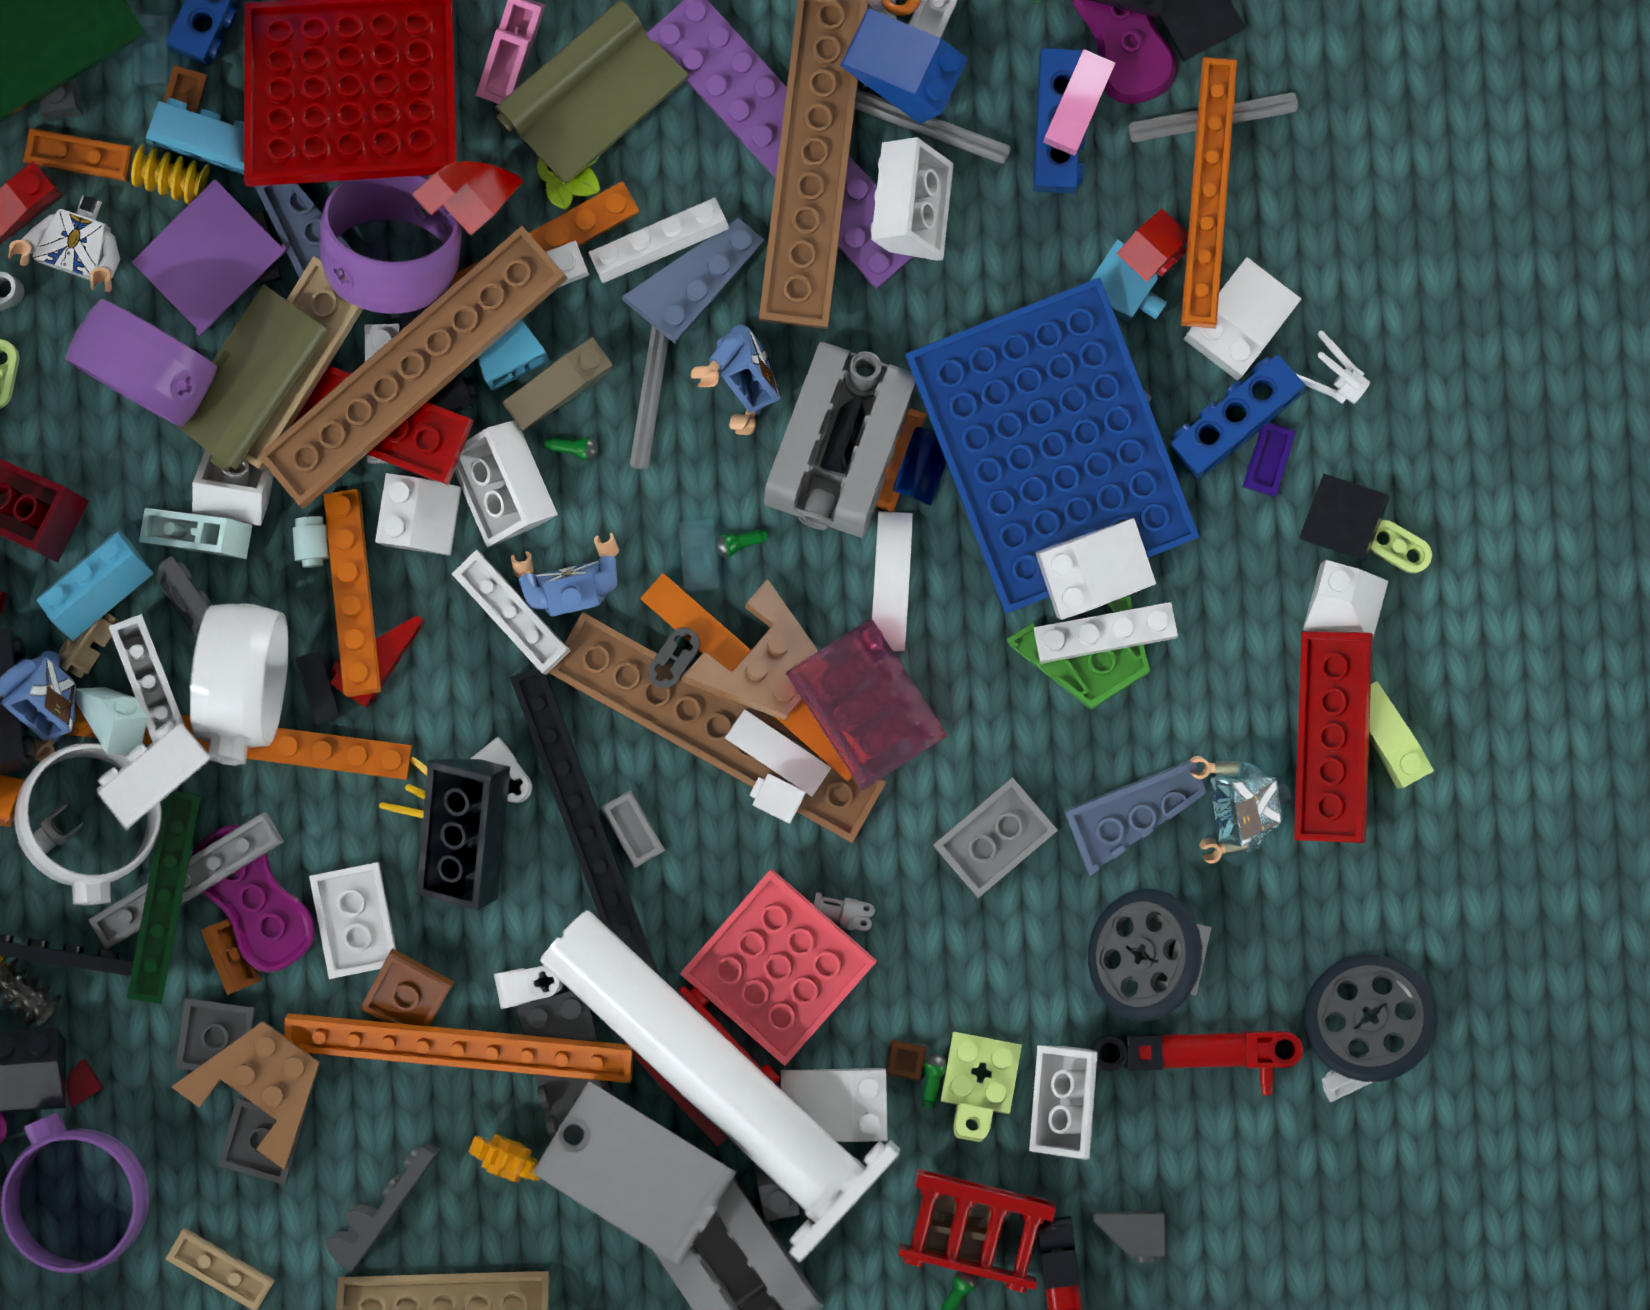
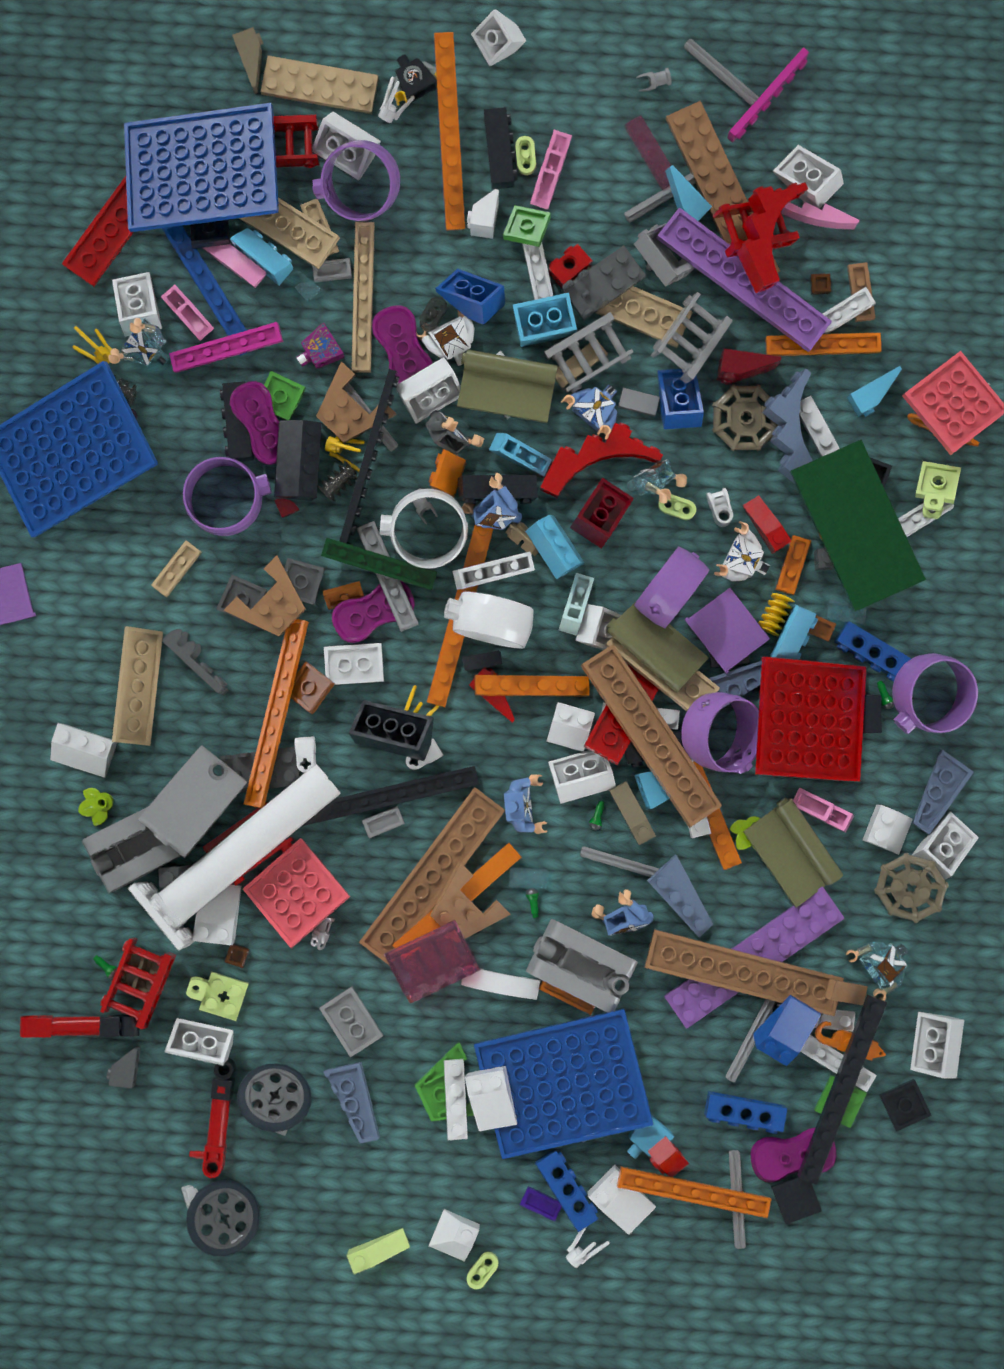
camera: 105 degrees right, 0 degrees up
(113, 717) = (479, 548): light aqua slope -> none
(152, 772) = (444, 567): white slope -> none
(175, 583) = (536, 597): dark grey plate -> none
(310, 541) = (563, 666): light aqua brick -> none
(468, 191) = (743, 780): red slope -> none
(504, 1157) = (212, 730): light orange gear -> none
(511, 612) = (510, 771): white plate -> none
(659, 240) = (706, 879): white plate -> none
(667, 653) = (469, 861): dark grey beam -> none
(777, 797) = (387, 905): white slope -> none
(778, 753) = (413, 908): white tile -> none
(843, 436) = (583, 967): black slope -> none
(912, 199) = (711, 1023): white slope -> none
(921, 467) = (561, 1008): clear blue slope -> none
(935, 1068) = (230, 971): green piece -> none
(1079, 102) = (753, 1126): bright pink slope -> none
(1243, 804) = (349, 1164): clear light blue torso -> none
(1333, 737) = (380, 1219): red plate -> none
(1344, 517) = (502, 1242): black tile -> none

